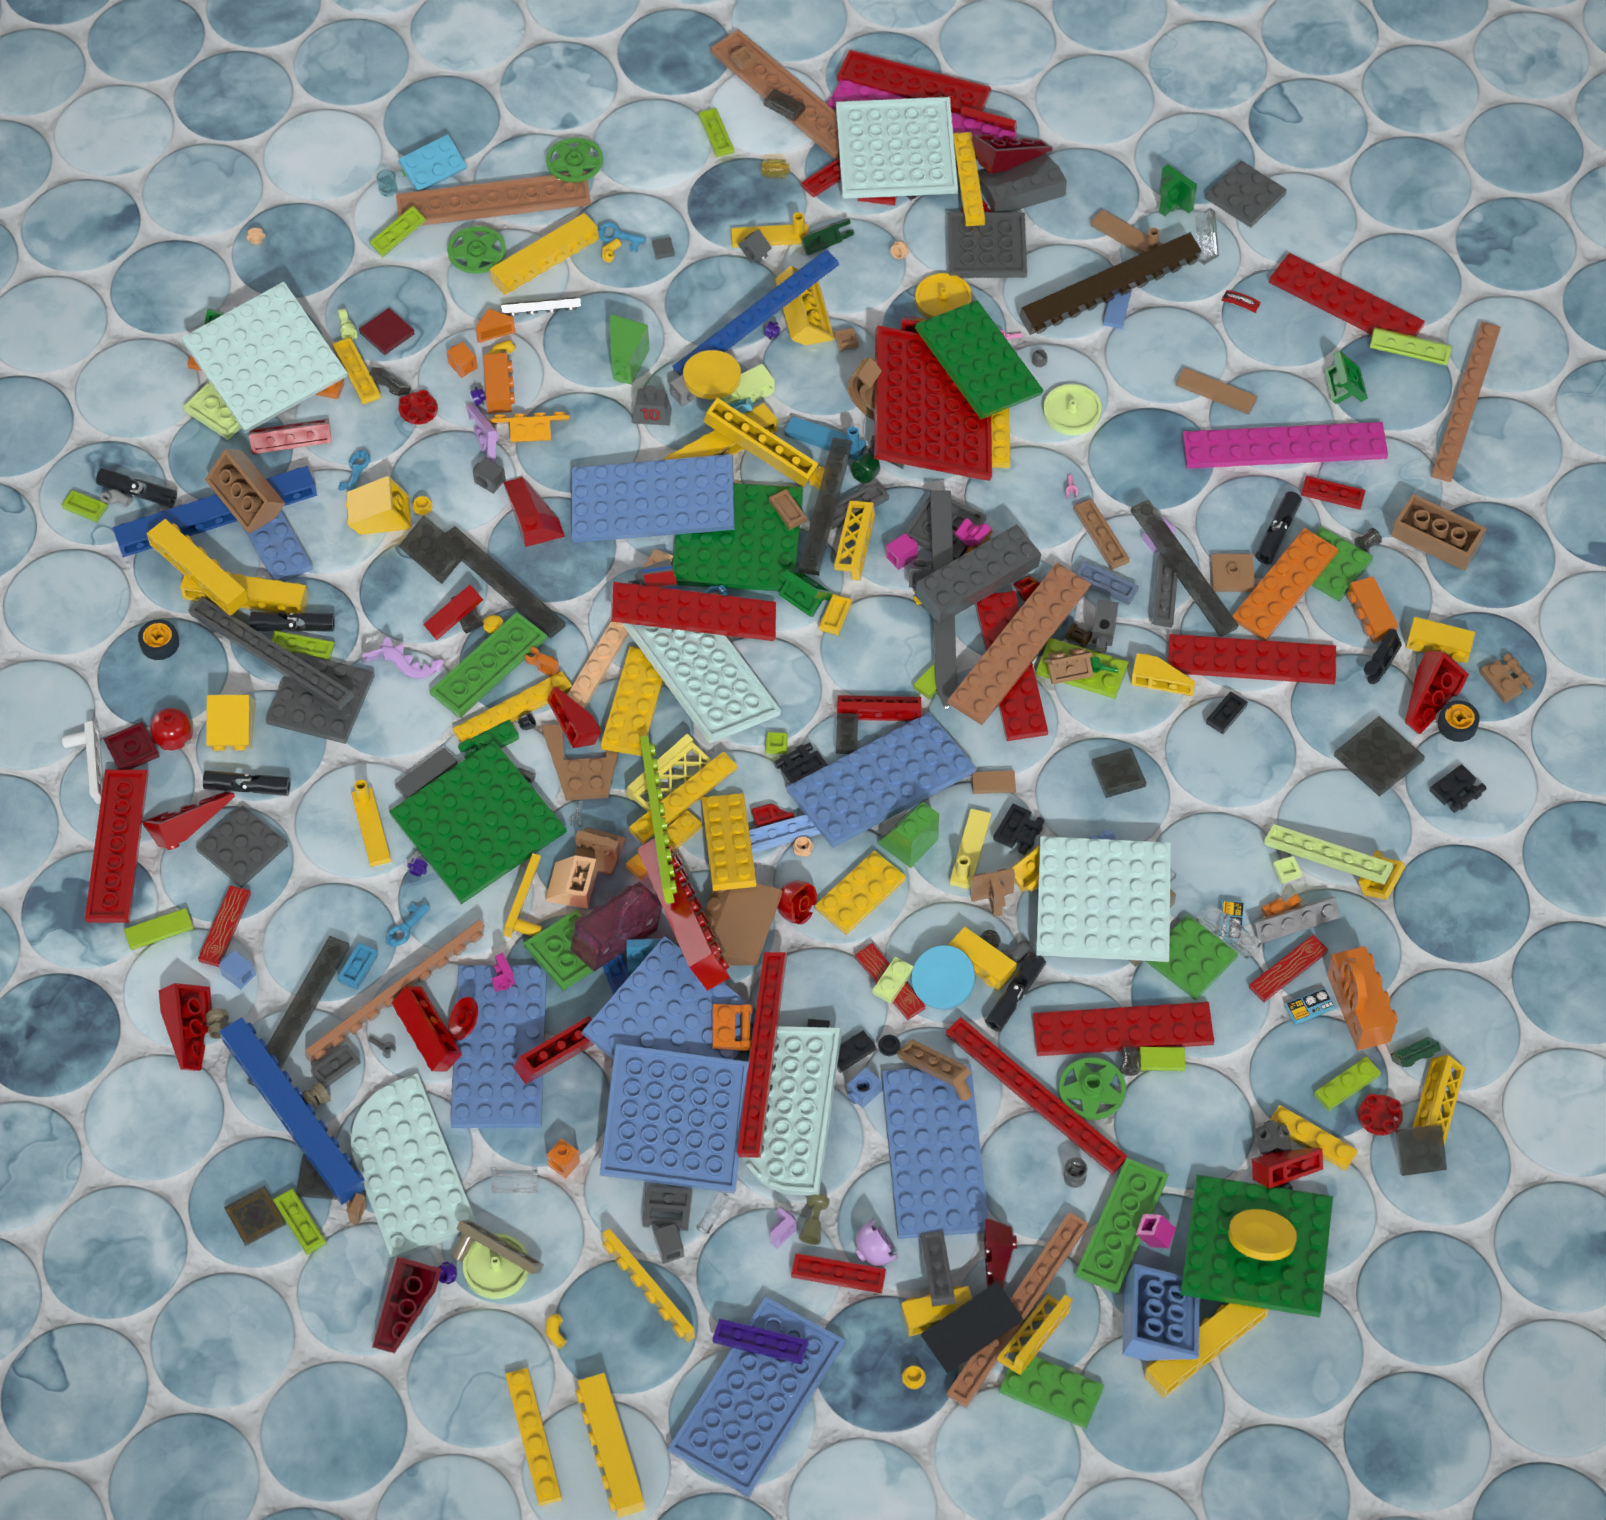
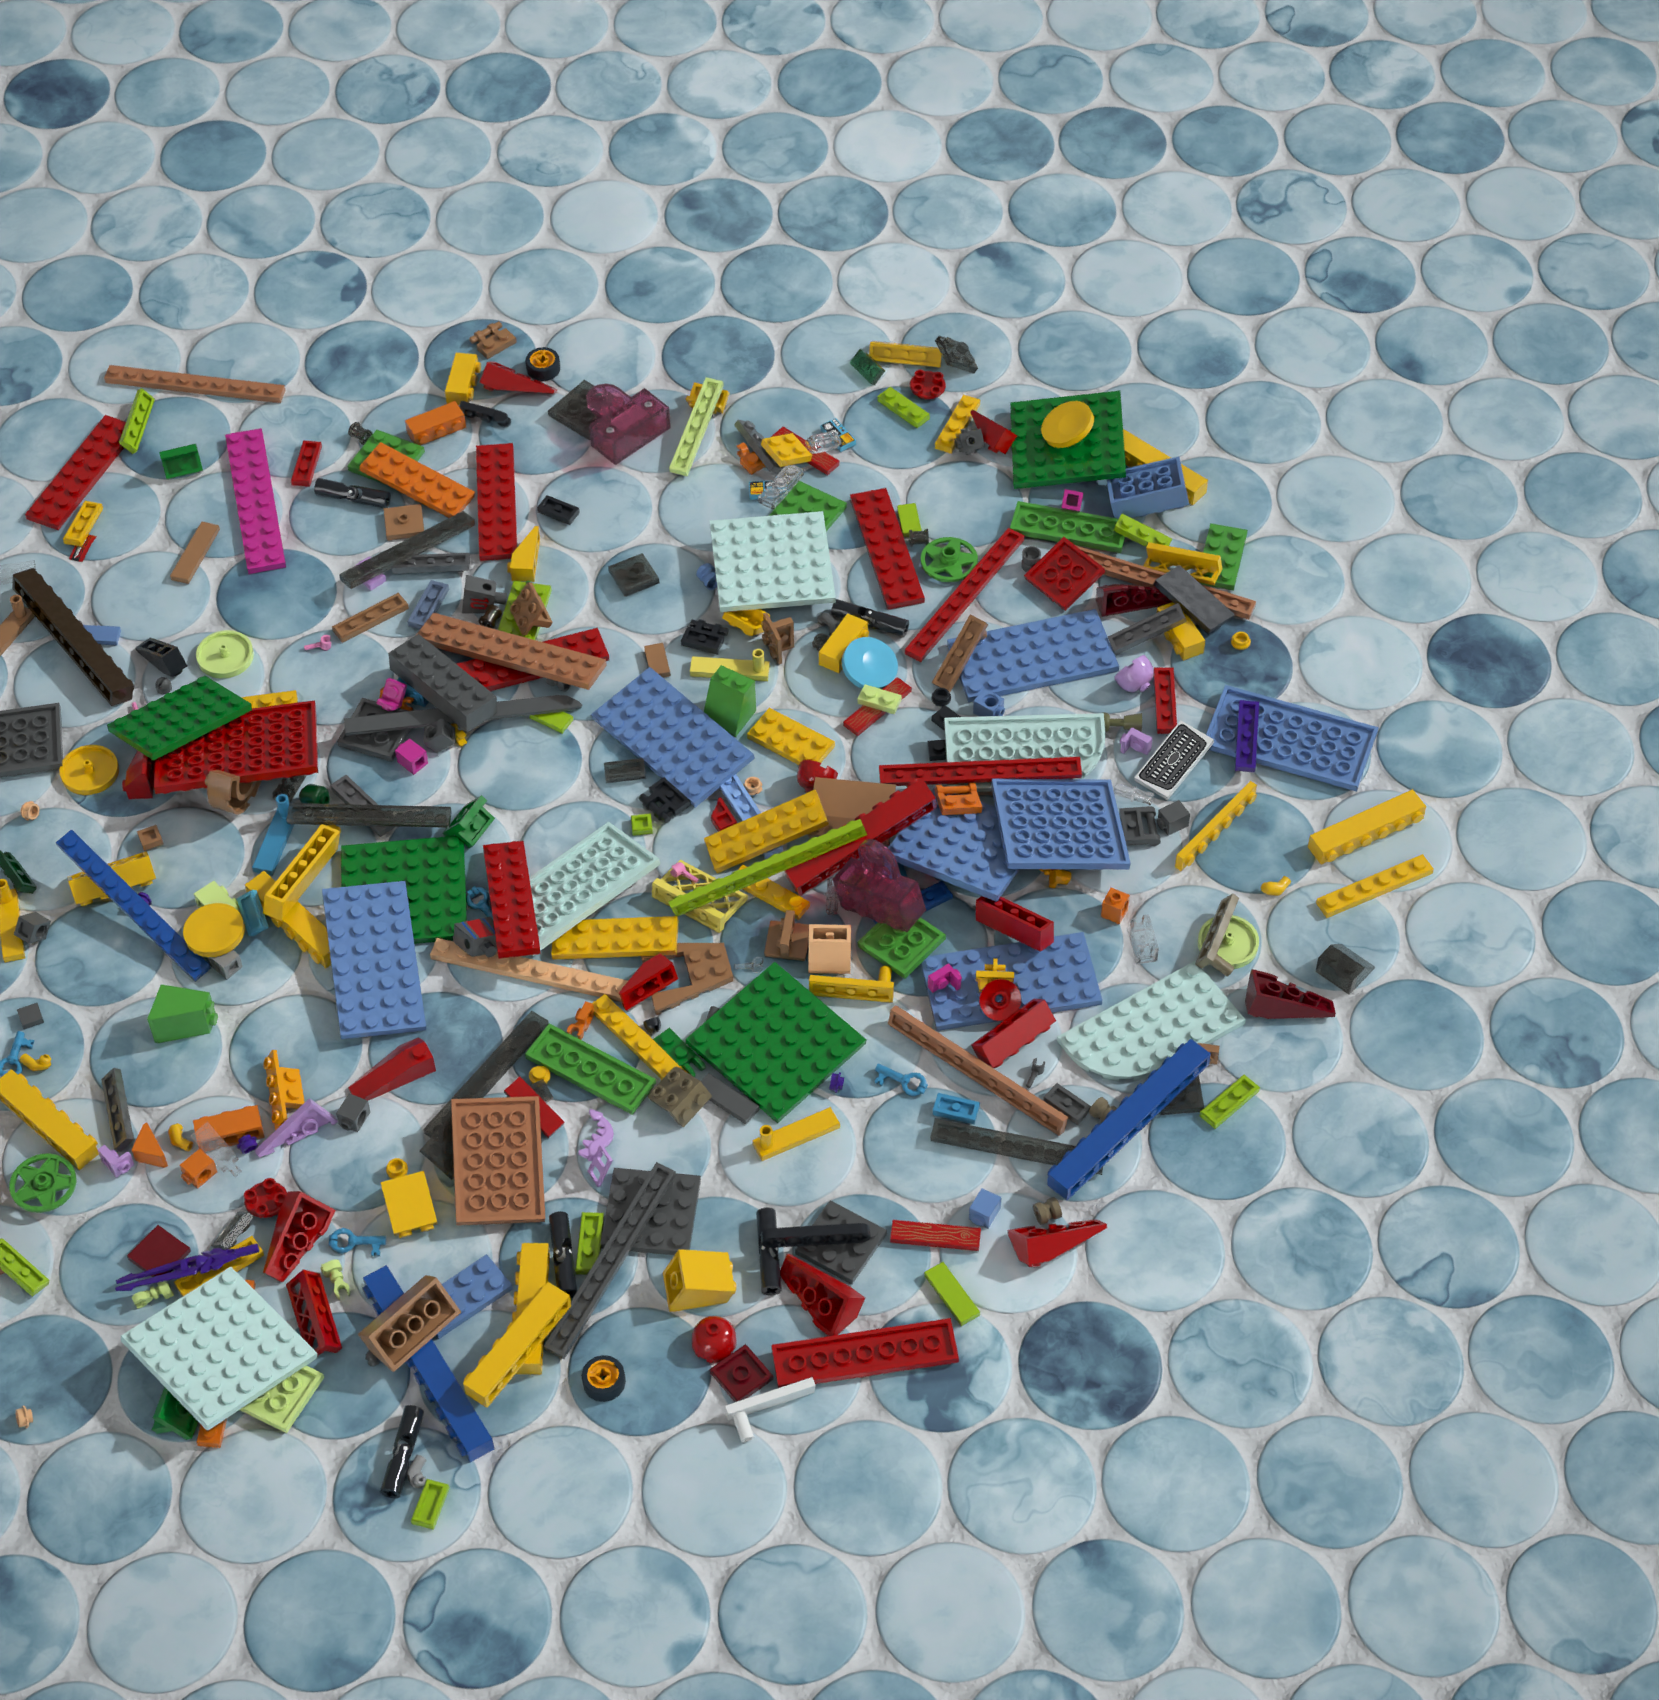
camera: 100 degrees left, 5 degrees down
(240, 814) = (815, 1235): none -> black beam
(255, 1215) = (1234, 1138): clear smoke tile -> none
(331, 452) = (333, 1270): none -> yellowish green piece
(357, 356) = (207, 1261): none -> dark purple sword
(378, 427) = (296, 1230): none -> red wedge
(398, 575) = (497, 1160): none -> nougat plate
(428, 726) = (680, 1095): none -> dark tan bracket
(431, 1373) = (1343, 967): none -> clear smoke slope
(448, 1273) = (1244, 972): dark purple plate -> none
(471, 370) = (216, 1149): none -> clear hinge
(486, 299) = (113, 1162): none -> lavender bracket
(494, 1021) = (994, 972): none -> yellow hips
(652, 407) = (254, 975): dark grey torso -> none
(686, 795) = (707, 873): yellow plate -> none
(702, 761) = (679, 868): none -> bright pink hand
(748, 1261) = (1174, 760): none -> tile
(787, 509) = (374, 848): medium nougat tile -> none
(835, 614) = (496, 801): yellow tile -> none
(862, 541) = (410, 789): yellow fence -> none
(880, 707) = (597, 757): red fence -> none
(1043, 1200) = (1064, 573): none -> red plate
(1072, 355) = (163, 656): none -> black slope
(1094, 1301) = (1139, 532): none -> lime plate
(1271, 300) = (83, 523): none -> yellow tile
(1279, 940) = (786, 450): none -> yellow plate
(1287, 869) = (711, 457): yellowish green plate -> none
(1288, 981) = (823, 442): none -> clear beam
(1343, 782) = (624, 421): none -> clear pink brick
(1362, 998) = (830, 395): orange brick -> none
(1438, 532) = (349, 384): medium nougat brick -> none
(1453, 784) = (606, 365): black plate -> none

